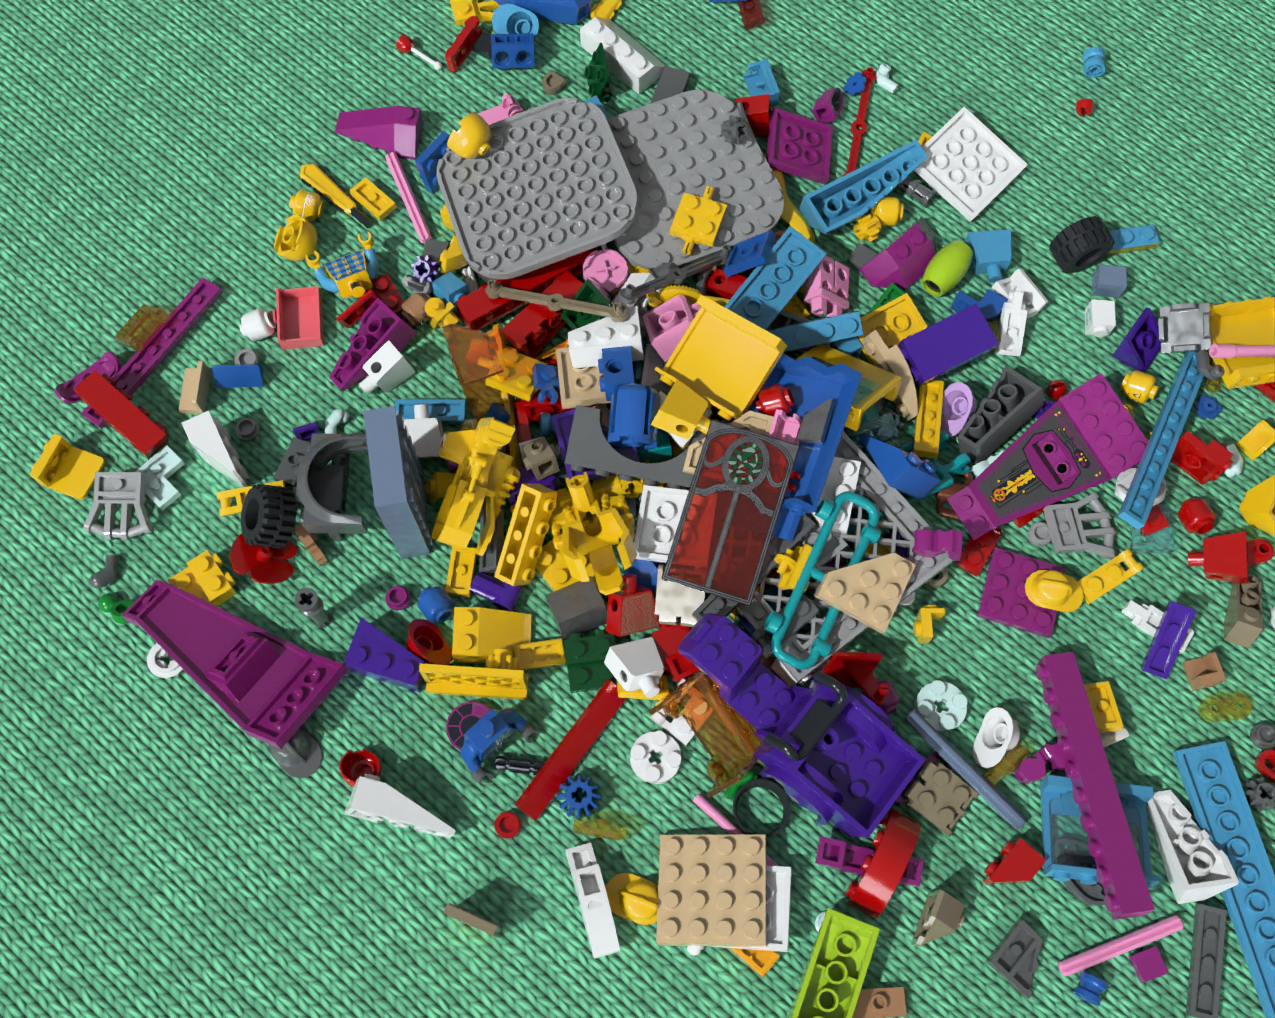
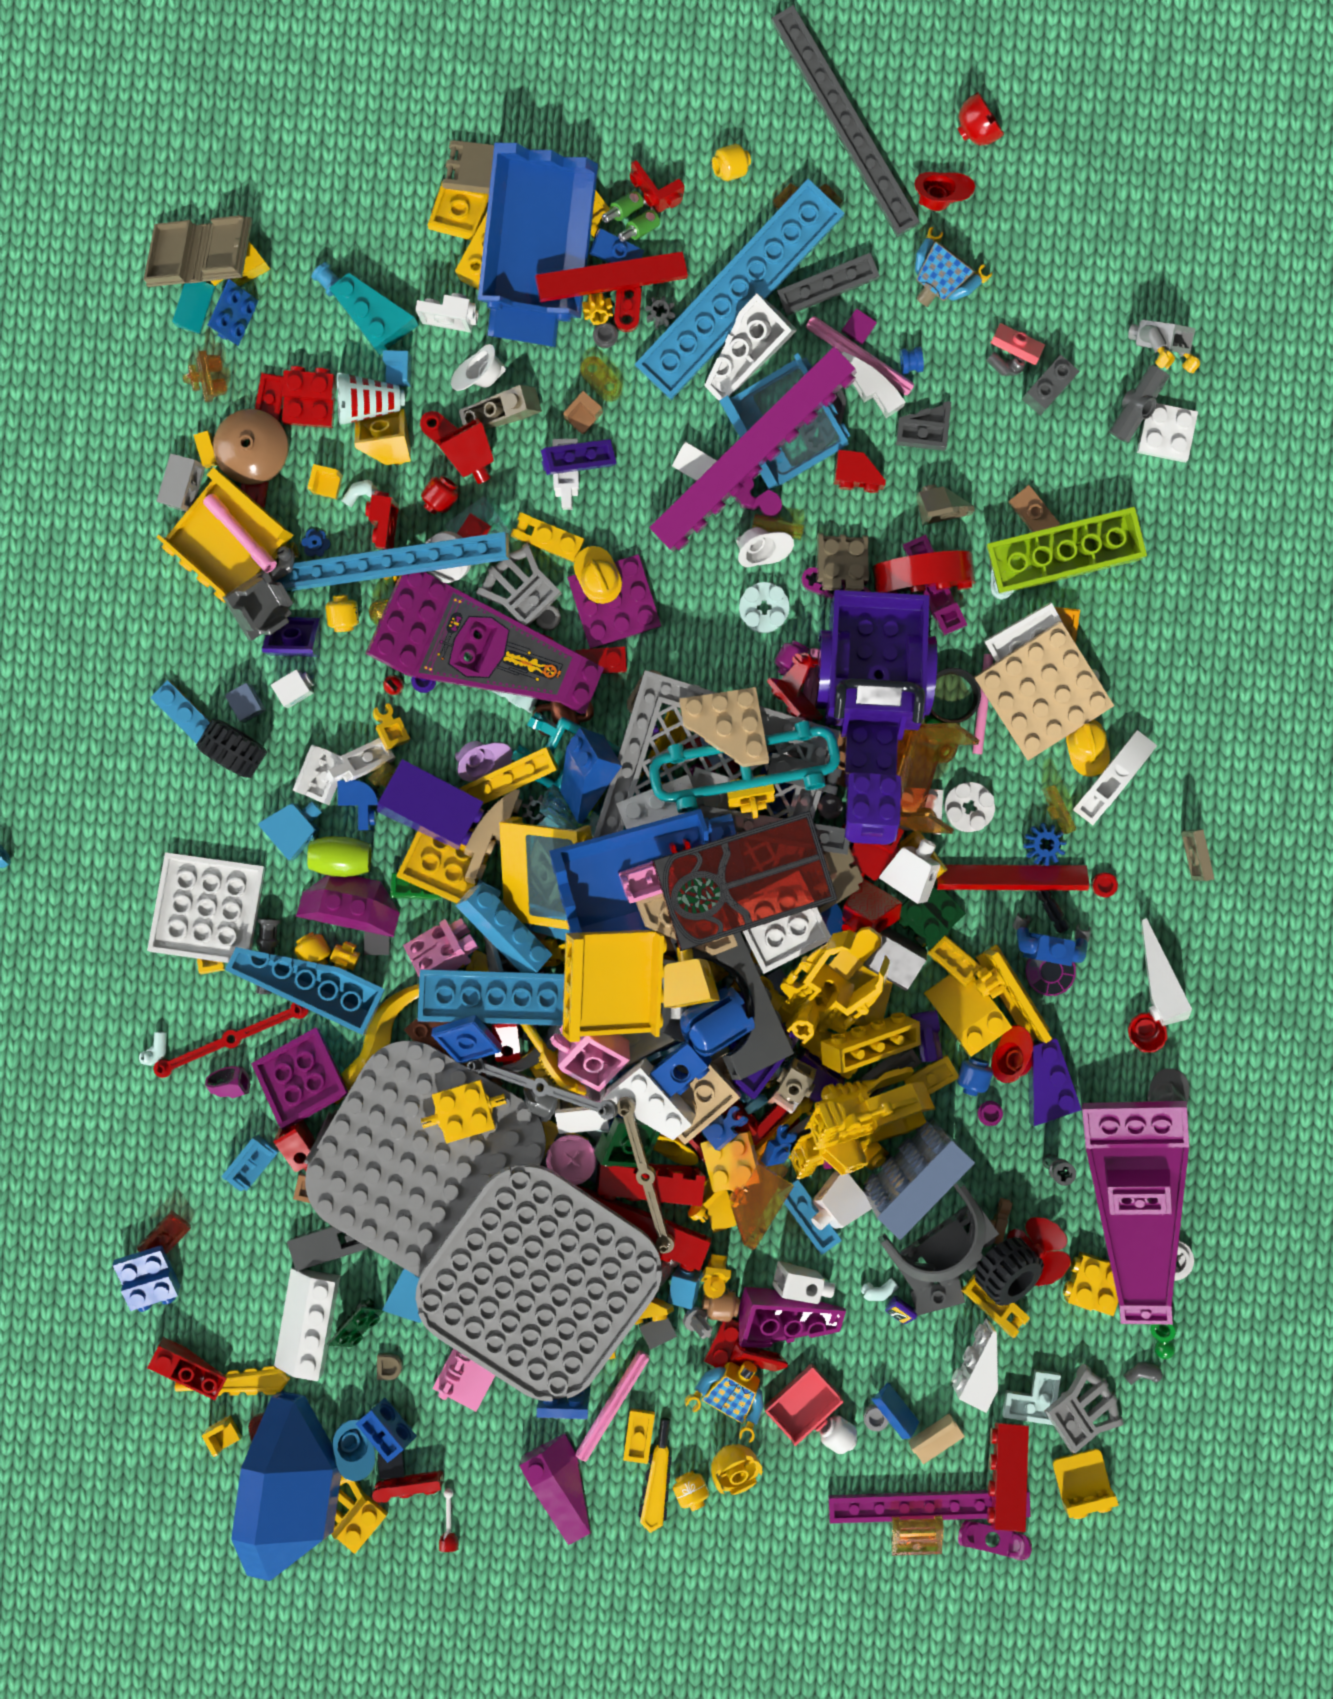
camera: 125 degrees left, 20 degrees up
(247, 429) = (938, 1362): flat silver plate -> none
(422, 273) = (683, 1324): gear -> none
(471, 138) = (534, 1378): yellow cylinder -> none
(734, 129) = (345, 1143): dark grey gear -> none
(775, 398) = (617, 911): red head -> none
(816, 423) = (616, 861): flat silver tile -> none
(855, 84) = (183, 1074): blue plant -> none
(923, 625) = (707, 663): yellow bracket -> none
(934, 543) = (649, 691): magenta leg -> none
(965, 769) = (807, 556): sand blue axle -> none
(1000, 414) = (462, 718): dark grey wedge -> none
(1023, 364) = (390, 730): none -> yellow plate
(1084, 106) = (55, 837): red hinge -> none
(1087, 935) = (874, 385): none -> white slope
(1104, 707) = (675, 477): yellow plate -> none

